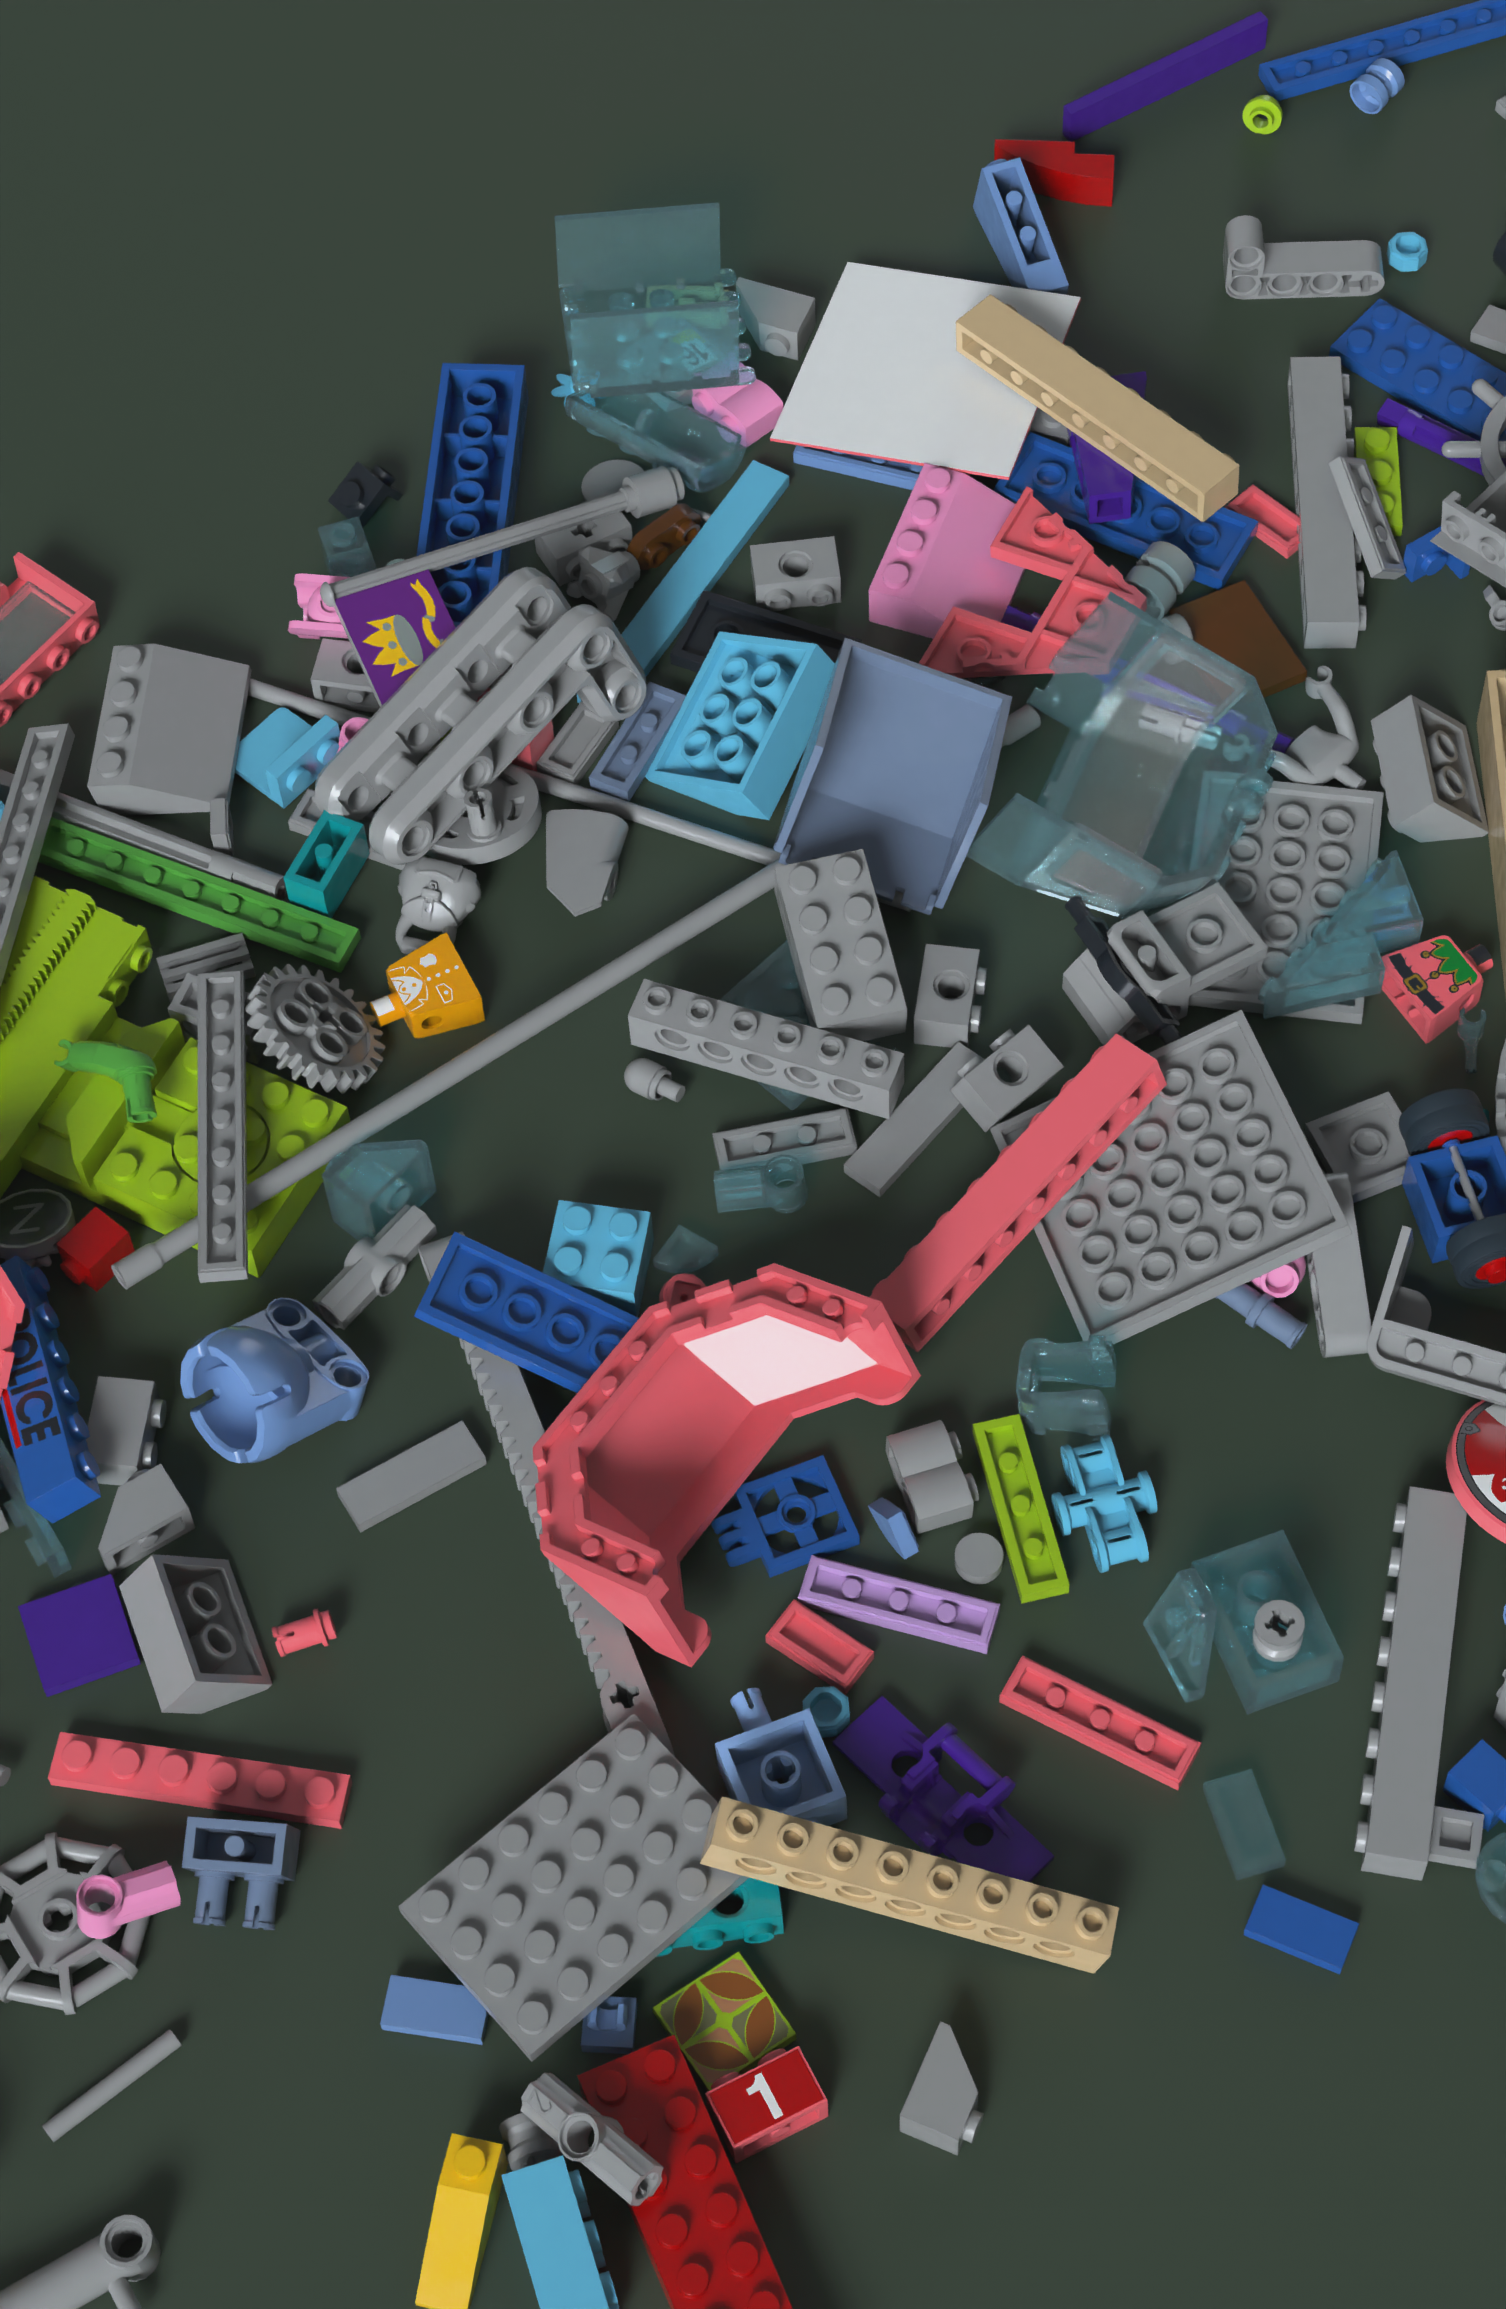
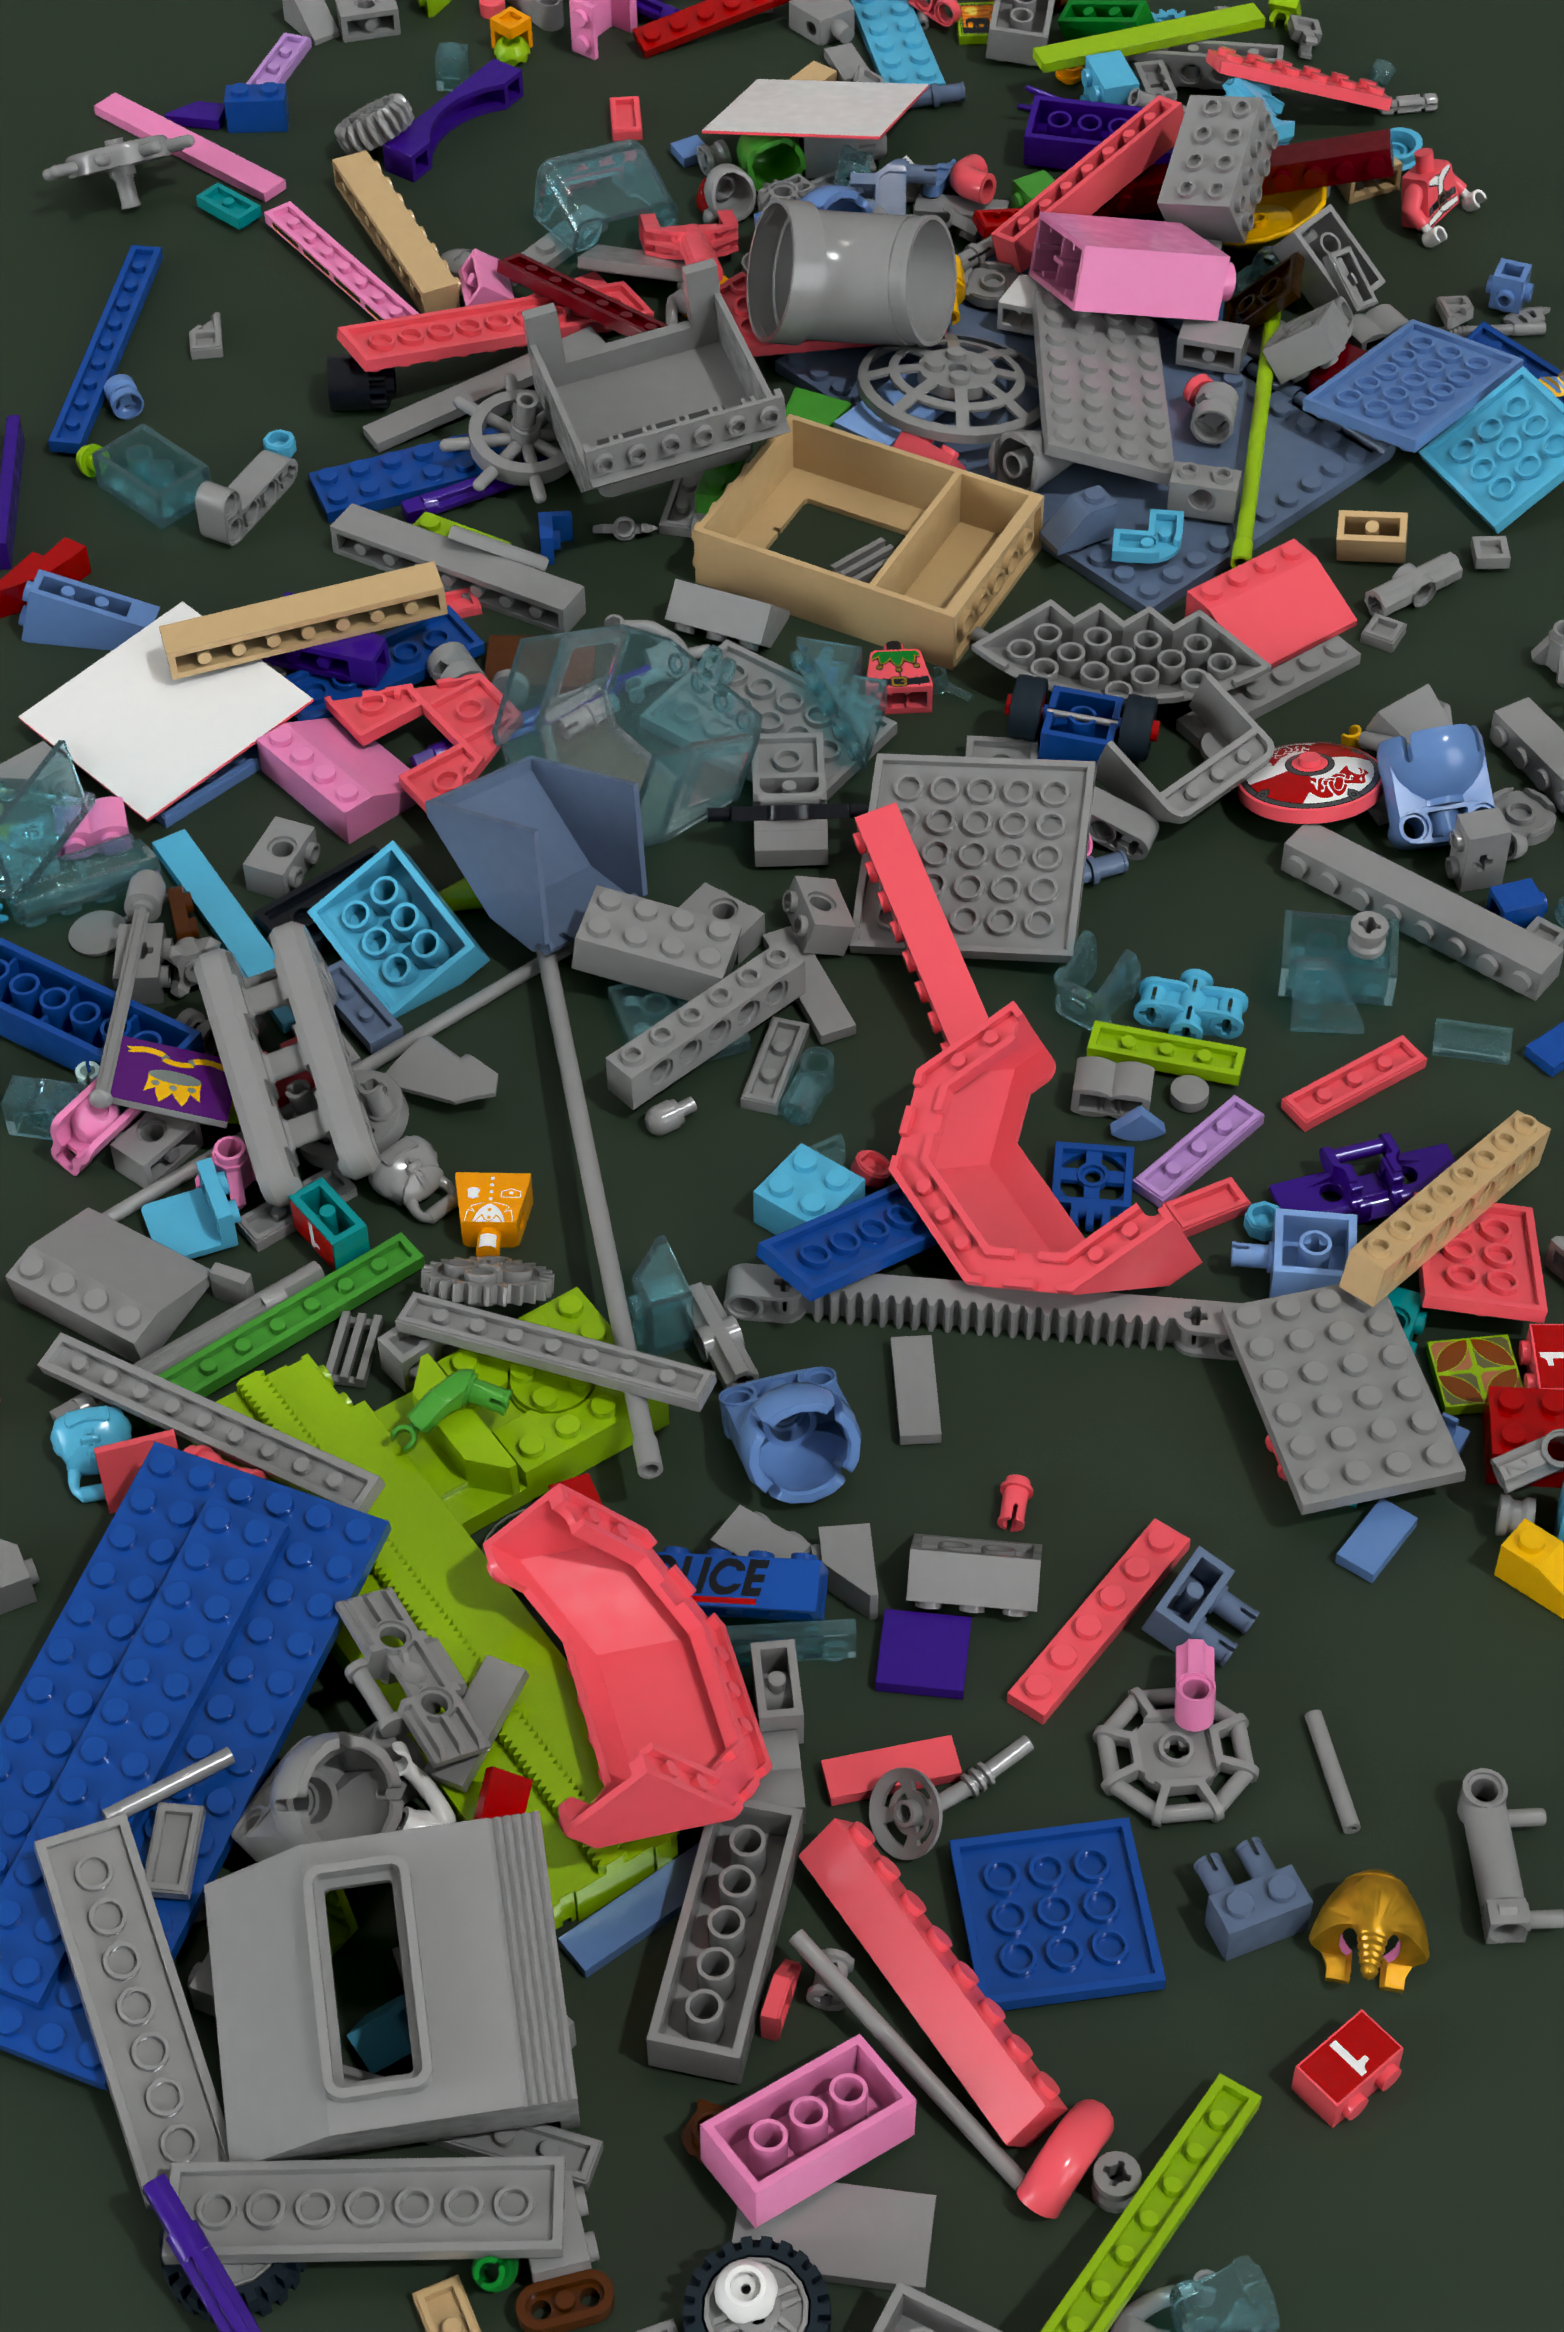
camera: 65 degrees left, 10 degrees down
(871, 1974) = (1489, 1268): none -> coral plate
(1265, 171) = (150, 475): none -> clear light blue brick

